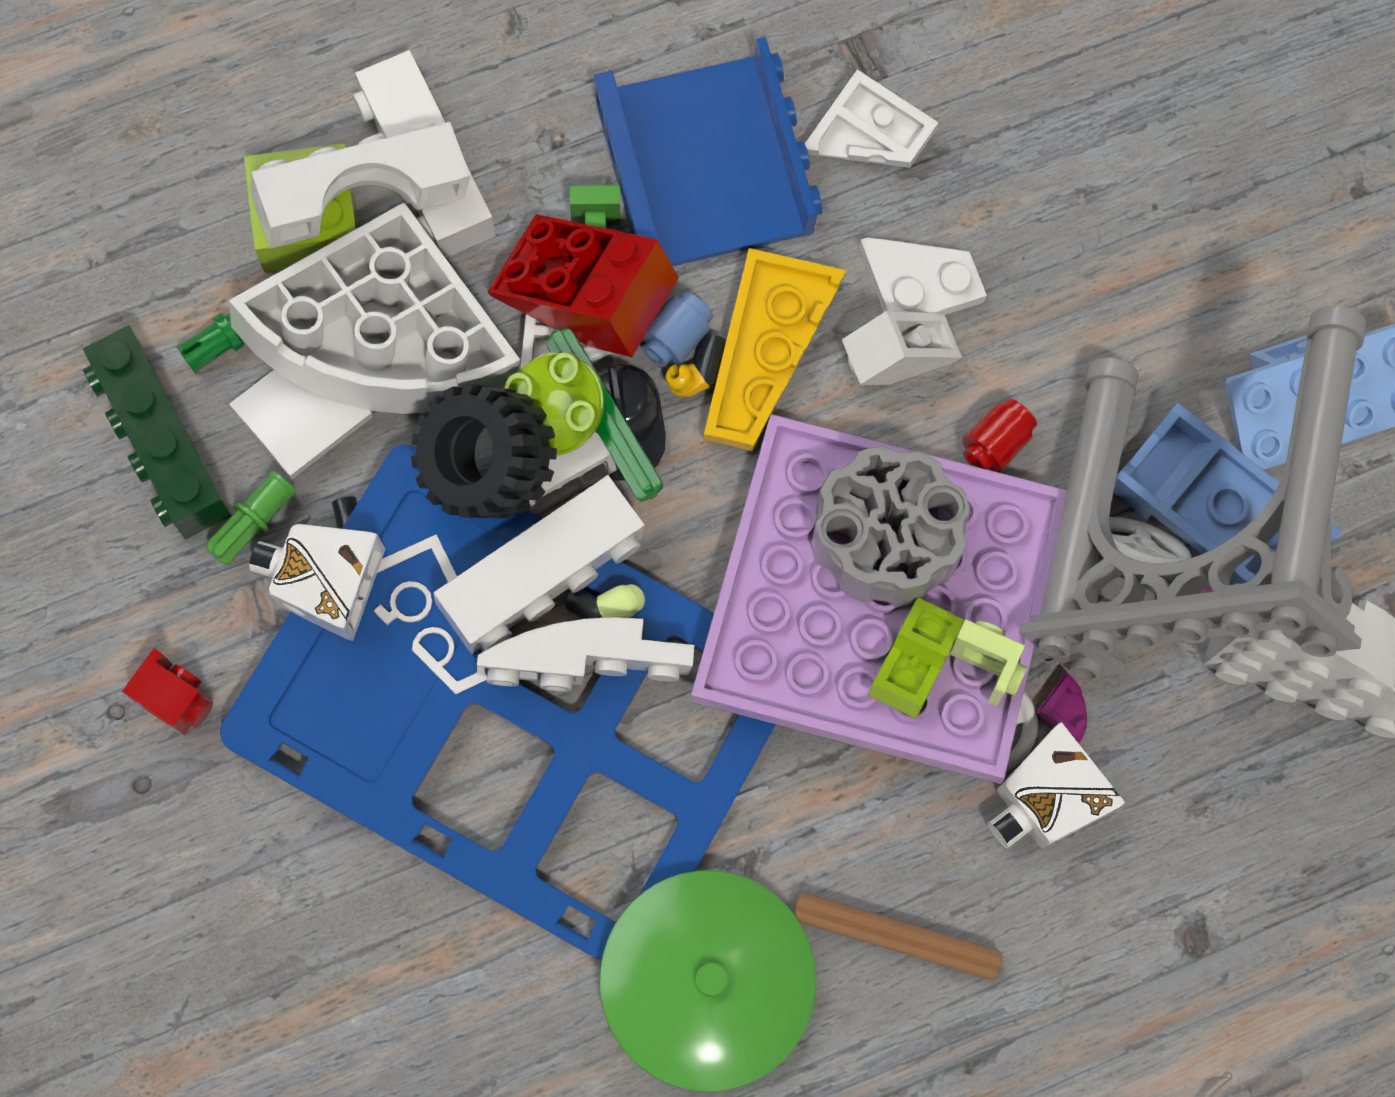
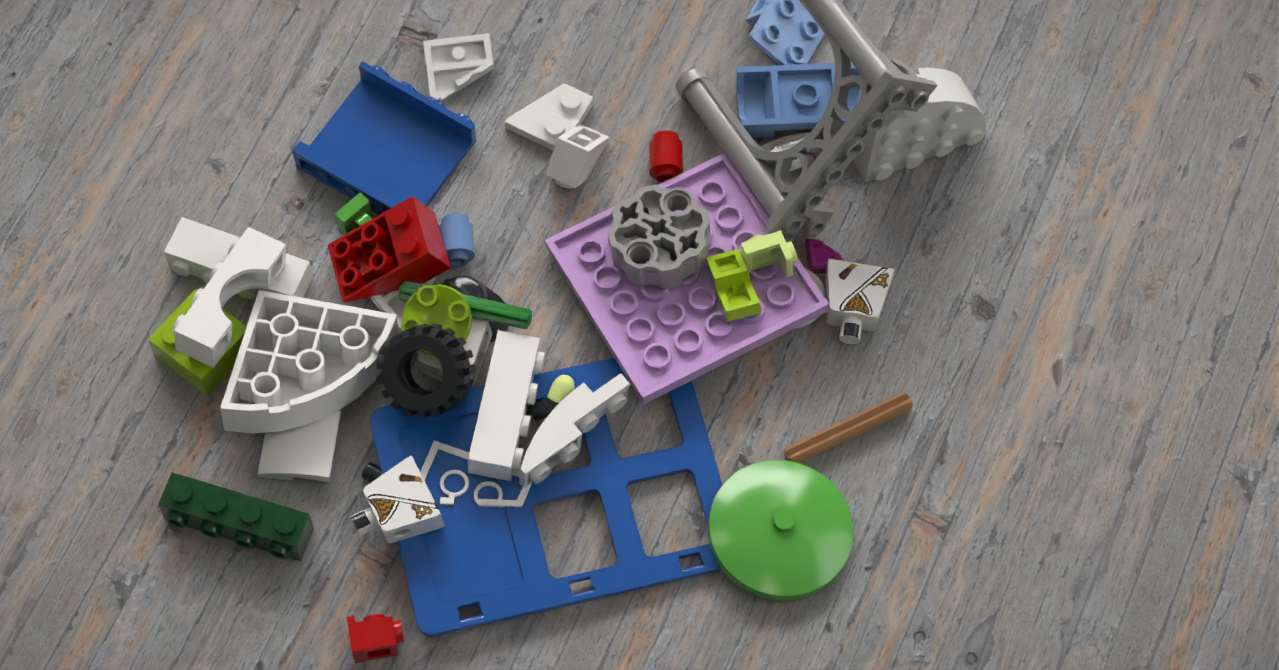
camera: 40 degrees left, 10 degrees down
(210, 343) = (218, 448): green pin -> none
(250, 518) = (328, 517): bright green axle -> none
(700, 374) = (488, 252): arm -> none
(769, 332) = (503, 203): yellow wing -> none

